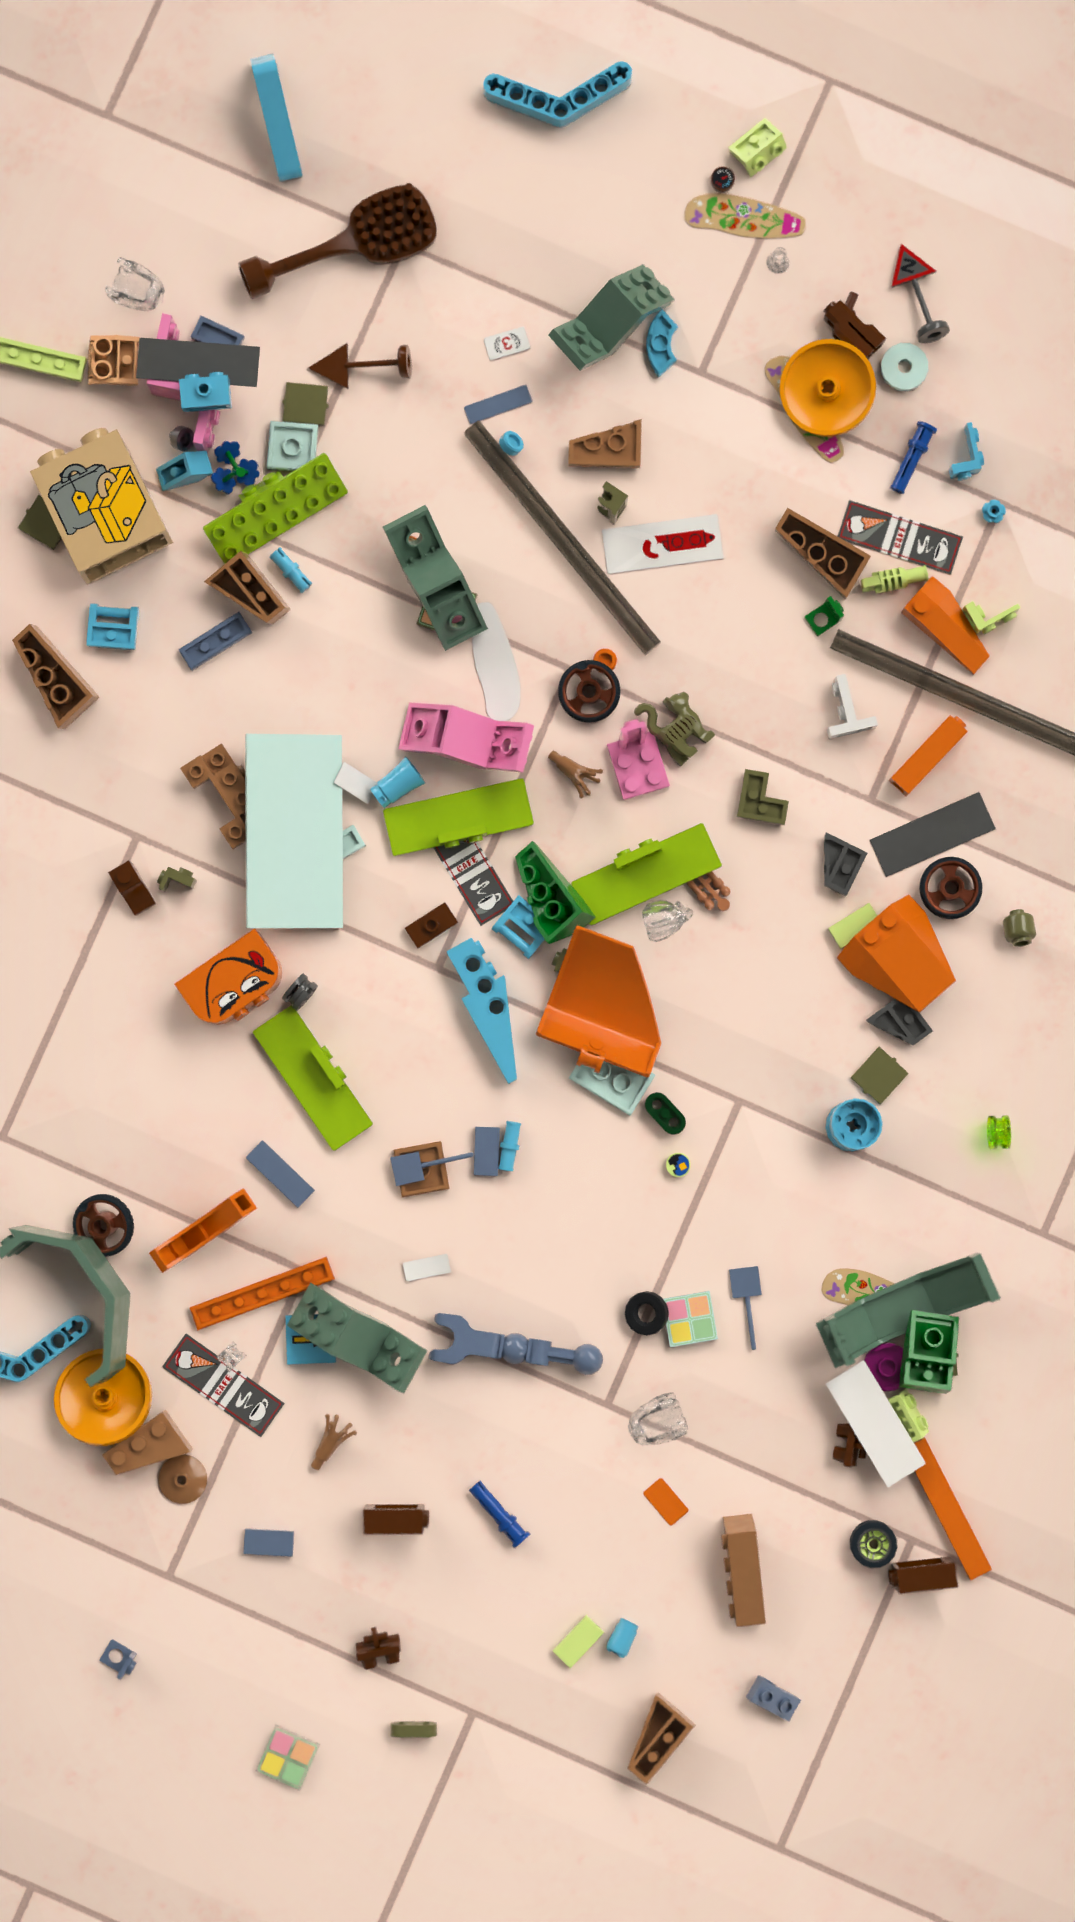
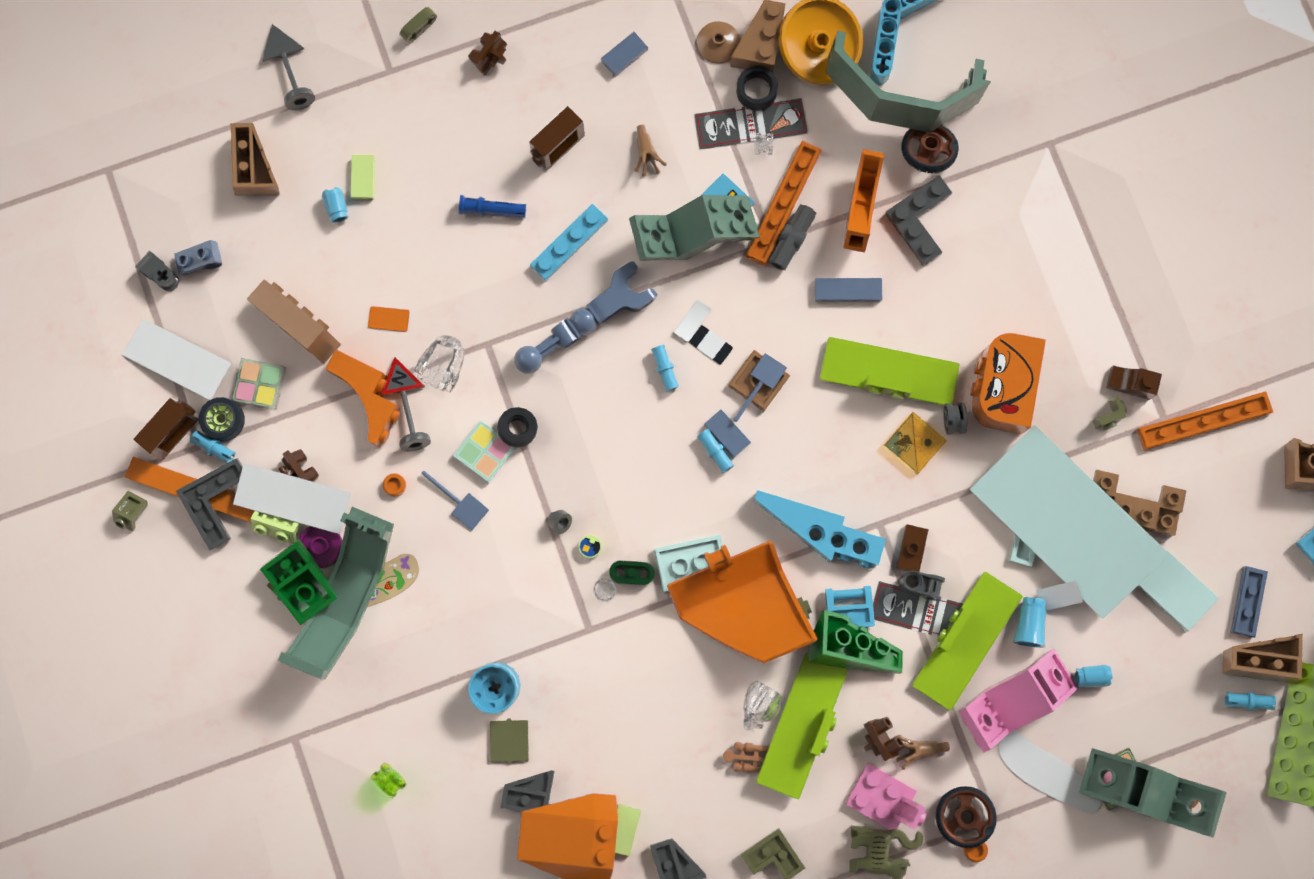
camera: 135 degrees right, 5 degrees down
(107, 805) = (1205, 420): none -> orange tile
(173, 1414) = (757, 72): none -> black tyre
(178, 1188) = (905, 218): none -> dark grey plate
(261, 699) = (1178, 592): none -> light aqua tile
(283, 1257) = (792, 237): none -> dark grey piece
(348, 1003) = (915, 443): none -> clear yellow tile
(389, 699) = (1094, 676): none -> medium azure piece
(430, 1234) = (711, 344): none -> sticker
(450, 889) = (926, 585): none -> dark grey piece
(463, 1426) = (569, 242): none -> medium azure plate
(485, 1249) = (665, 367): none -> medium azure pin
(542, 1821) = (280, 45): none -> dark grey piece
(598, 807) = (880, 741): none -> reddish brown hips
(683, 1206) = (560, 521): none -> flat silver tile
(701, 1117) = (603, 587): none -> clear wheel
(703, 1439) = (400, 381): none -> dark grey piece
(733, 1462) = (367, 384): none -> orange arch
(785, 1360) = (394, 485): none -> orange tile
(815, 1721) = (156, 271): none -> dark grey piece
(818, 1546) = (258, 384): none -> tile
(865, 1628) = (176, 359): none -> white sticker
(900, 1527) = (212, 447): none -> medium azure pin
(945, 1498) = (197, 503): none -> dark grey plate
(1012, 1538) = (128, 510): none -> olive bracket

